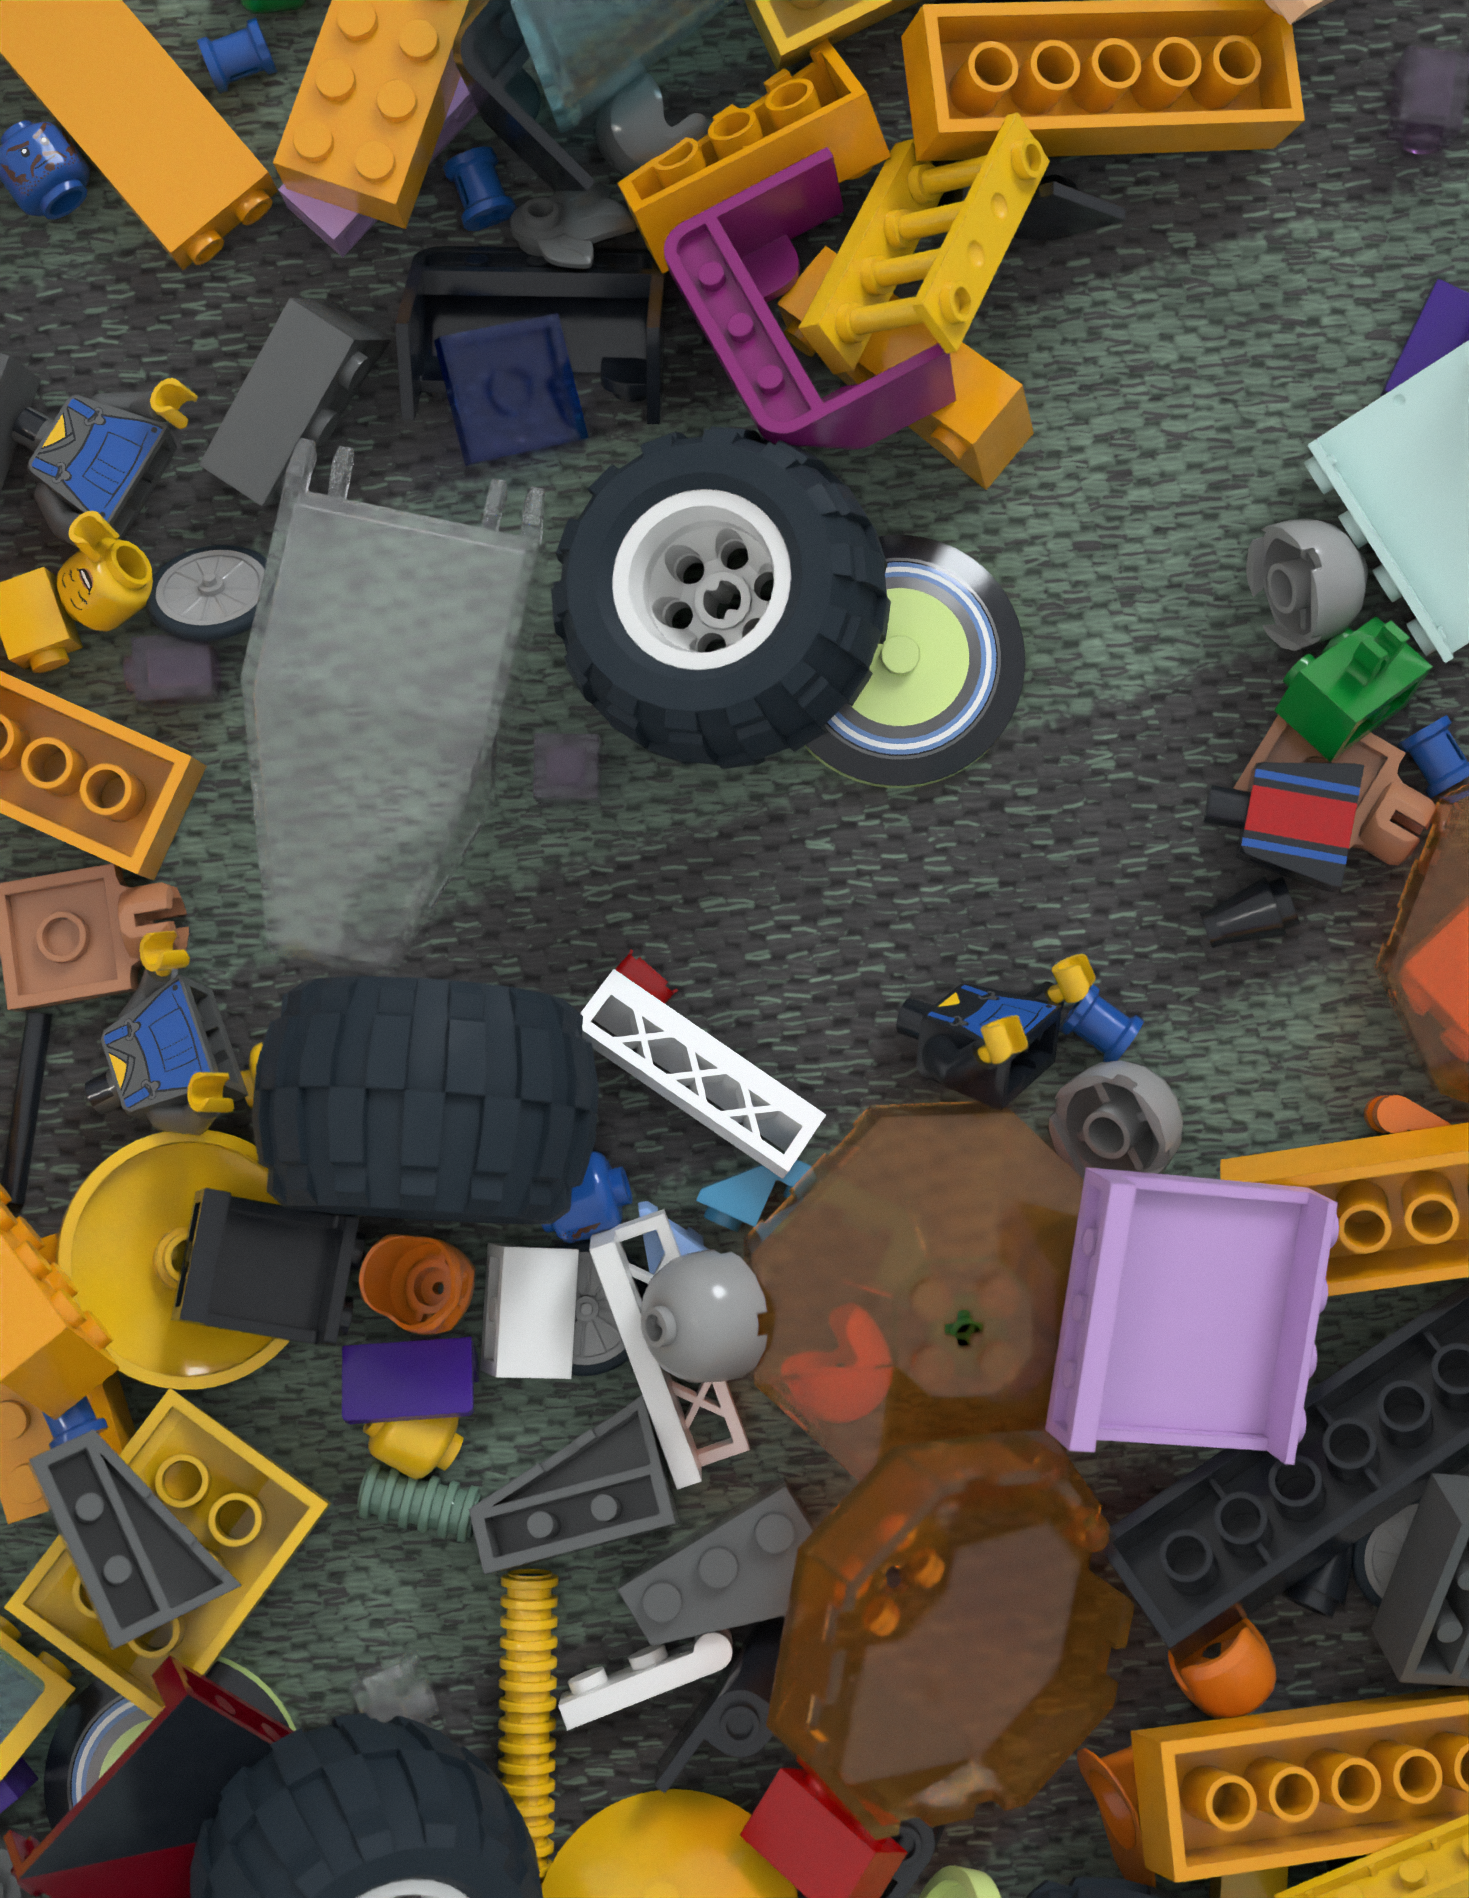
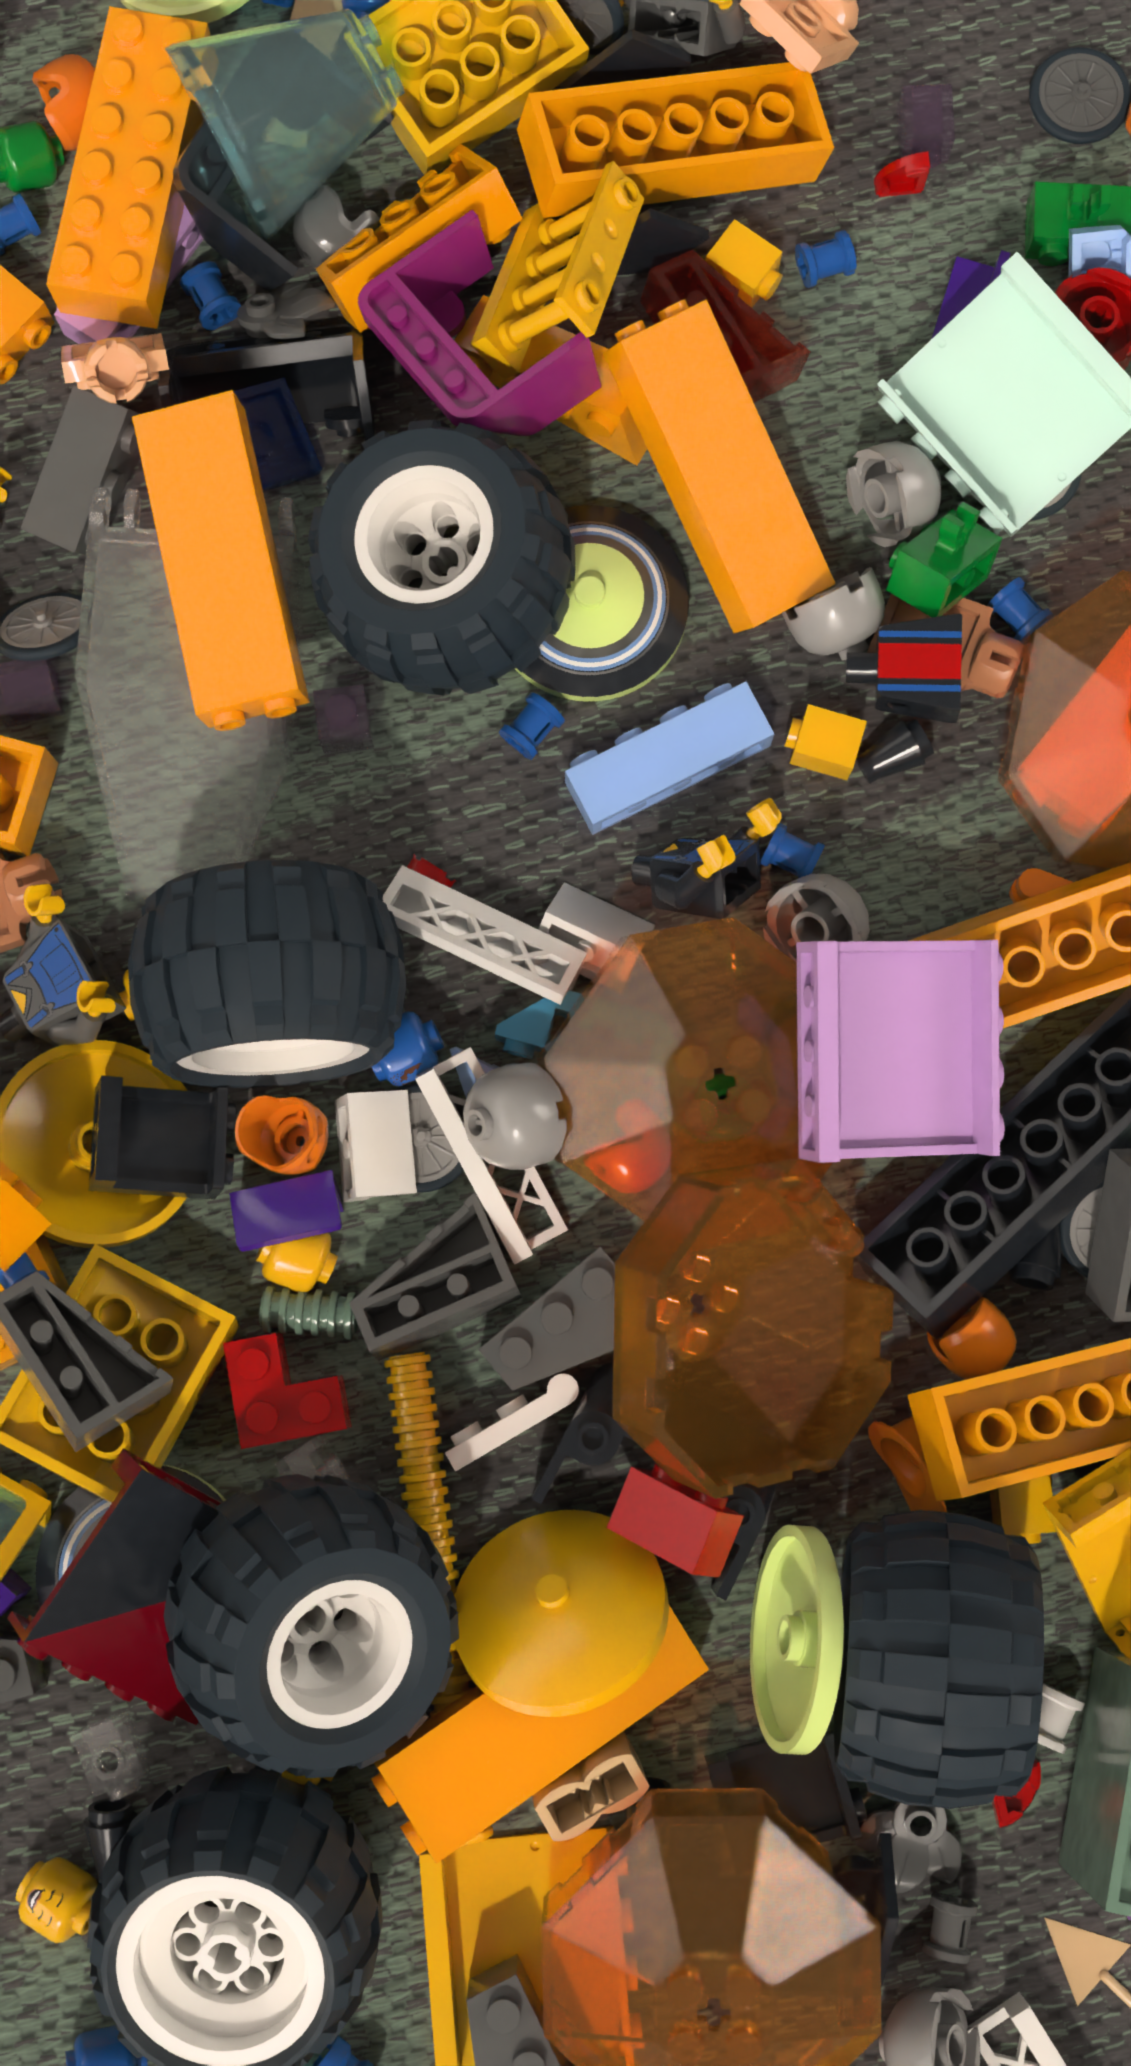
camera: 15 degrees left, 5 degrees down
(345, 279) = (115, 366): none -> light nougat plate
(358, 1613) = (270, 1406): none -> red brick
(442, 565) = (220, 561): none -> light orange brick
(801, 810) = (532, 725): none -> blue bush
(837, 1078) = (589, 925): none -> white panel
(966, 878) = (668, 756): none -> light blue brick
(1088, 522) = (718, 464): none -> light orange brick
(1114, 343) = (759, 350): none -> clear red wedge
(1164, 252) = (747, 262): none -> yellow brick
(1166, 889) = (825, 741): none -> yellow brick
(1208, 730) = (839, 616): none -> light grey cylinder
(1270, 257) = (825, 258): none -> blue bush
(1390, 161) = (903, 175): none -> red tile

